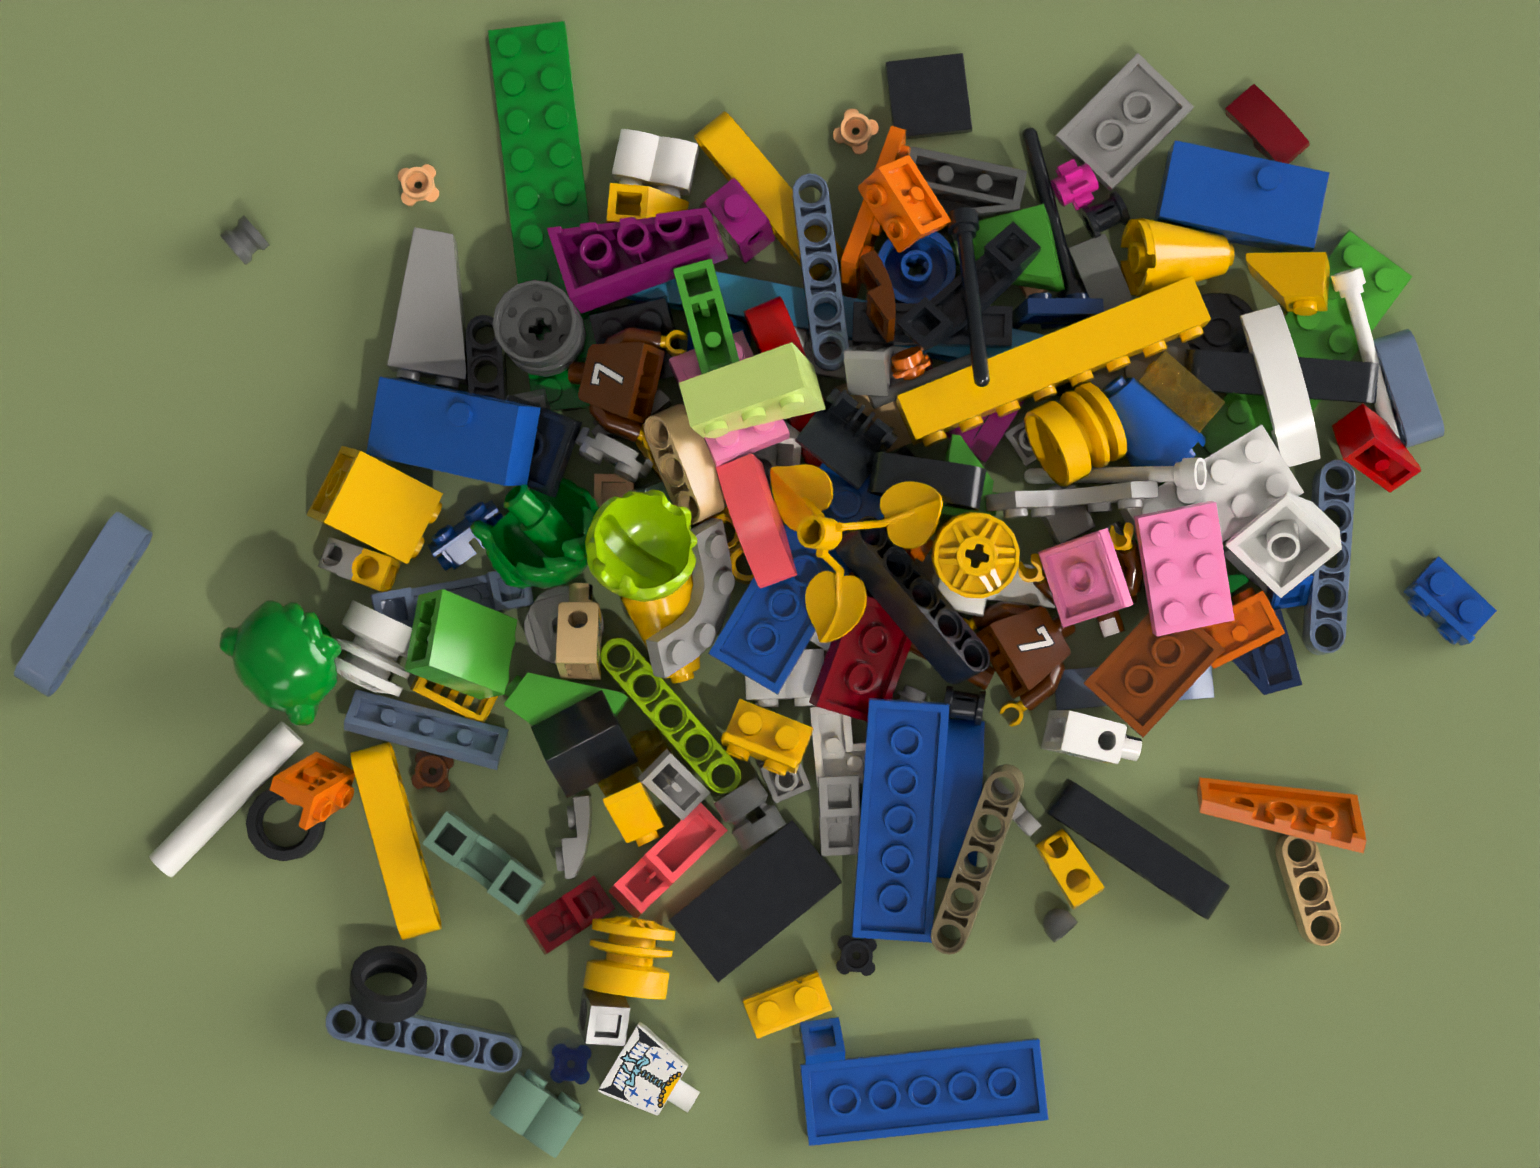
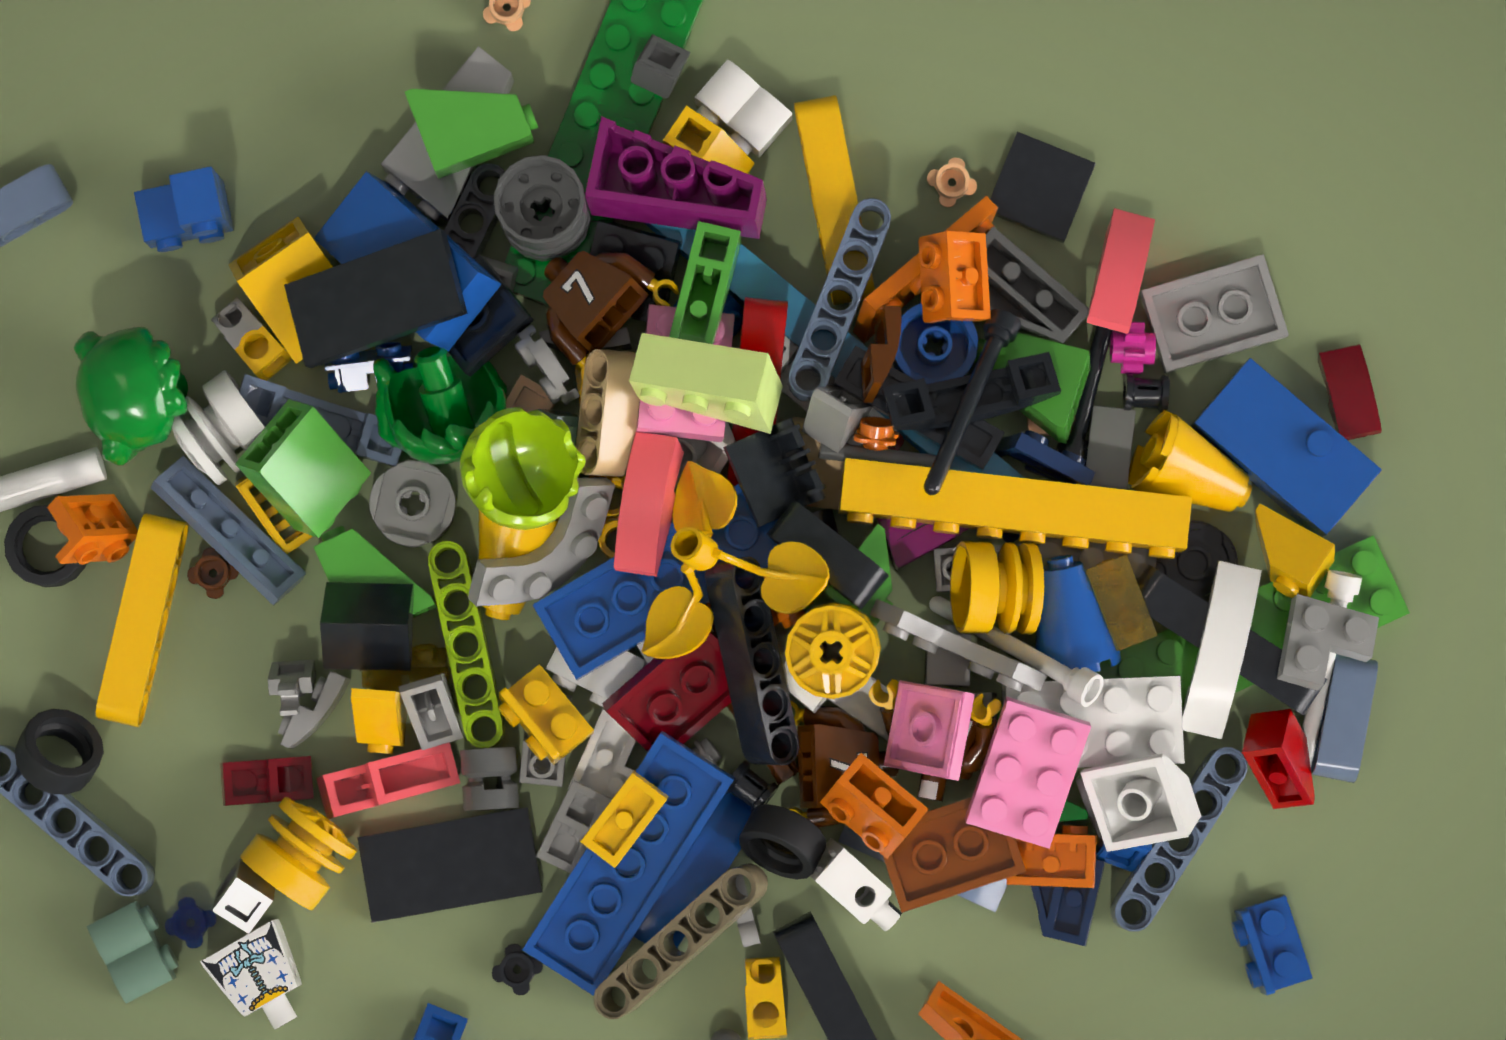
camera: 25 degrees right, 0 degrees up
(247, 490) = (184, 210): none -> blue brick
(443, 295) = (469, 126): none -> bright green slope
(446, 474) = (375, 299): none -> black tile
(485, 862) = (214, 685): sand green arch -> none
(546, 823) = (291, 681): none -> light grey plate
(569, 164) = (659, 66): none -> dark grey slope
(579, 648) = (411, 534): tan torso -> none
(740, 220) = (791, 207): magenta torso -> none
(787, 1004) = (425, 979): yellow brick -> none
(879, 785) = (624, 819): none -> yellow plate
(1015, 733) = (782, 841): none -> black tyre
(1032, 127) = (1120, 271): none -> coral slope
(1075, 663) = (873, 806): none -> orange brick
(1349, 332) = (1314, 632): none -> light grey plate

